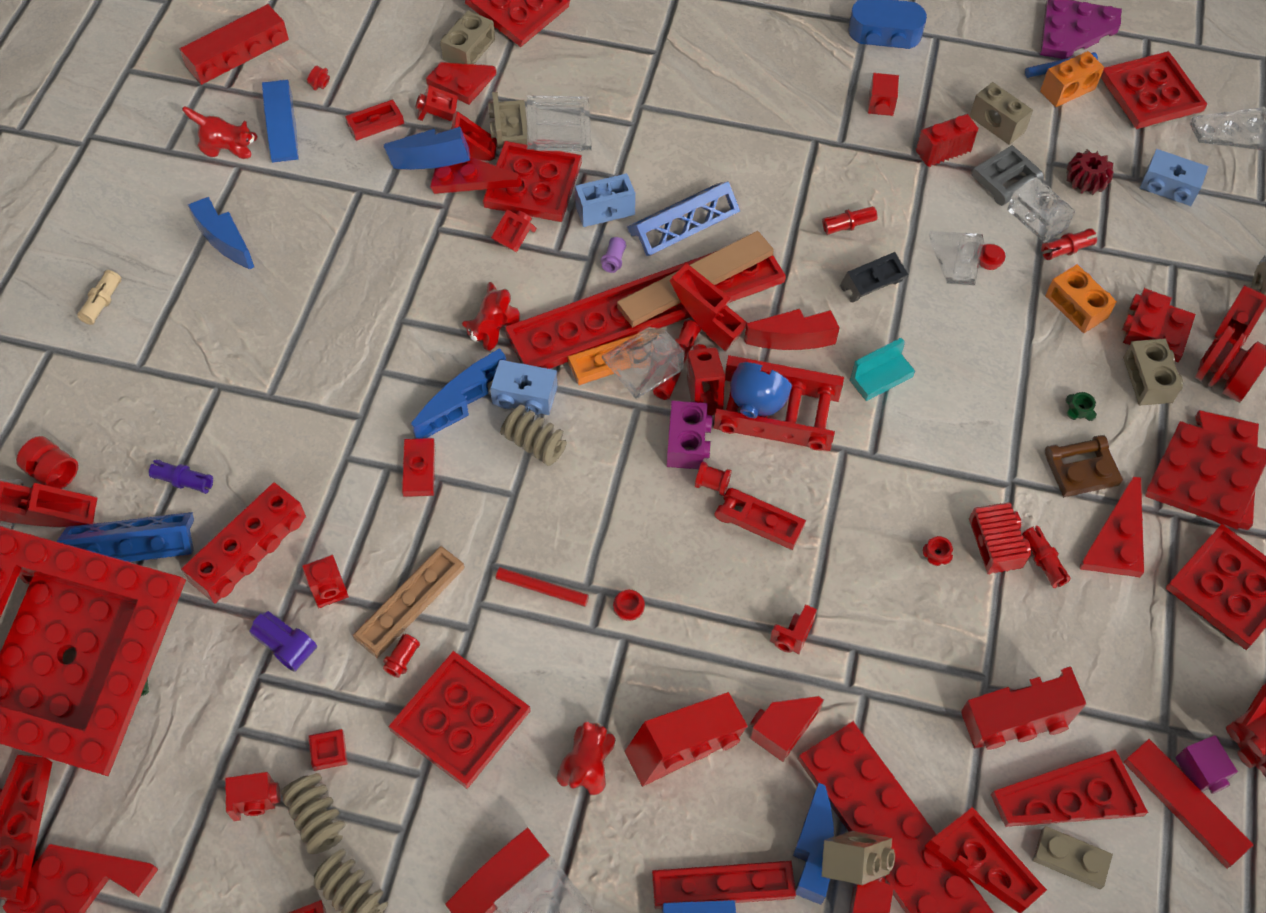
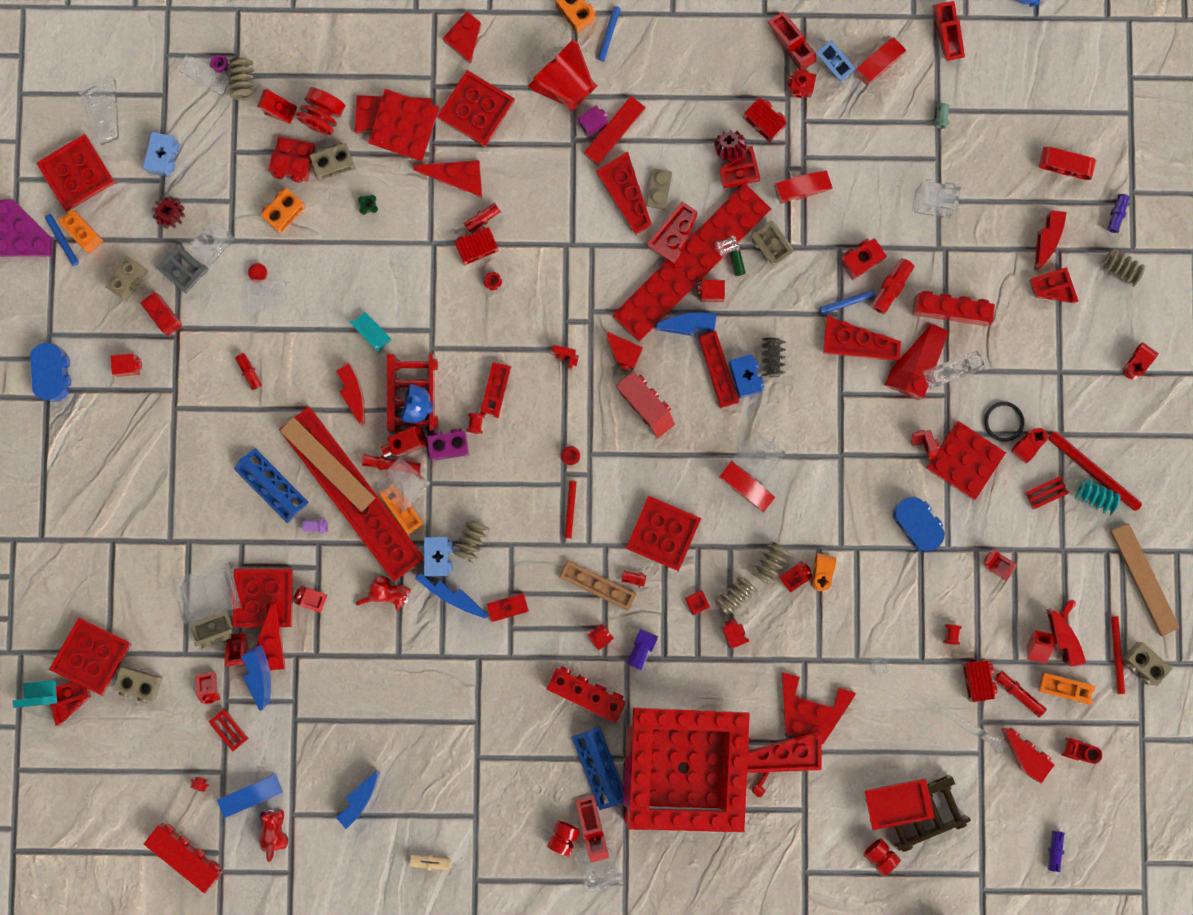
camera: 105 degrees left, 25 degrees up
(181, 476) = (550, 752): dark purple pin -> none
(461, 79) = (175, 678): red wing -> none
(586, 761) = (672, 457): red animal -> none
(605, 200) = (273, 541): medium blue brick -> none
(708, 306) = (352, 450): red slope -> none
(857, 857) = (694, 299): dark tan brick -> none
(874, 276) = (298, 347): black hinge -> none
(1024, 711) = (587, 222): red wedge -> none
(1069, 244) = (236, 221): red pin -> none
(1086, 474) = (417, 197): reddish brown plate -> none

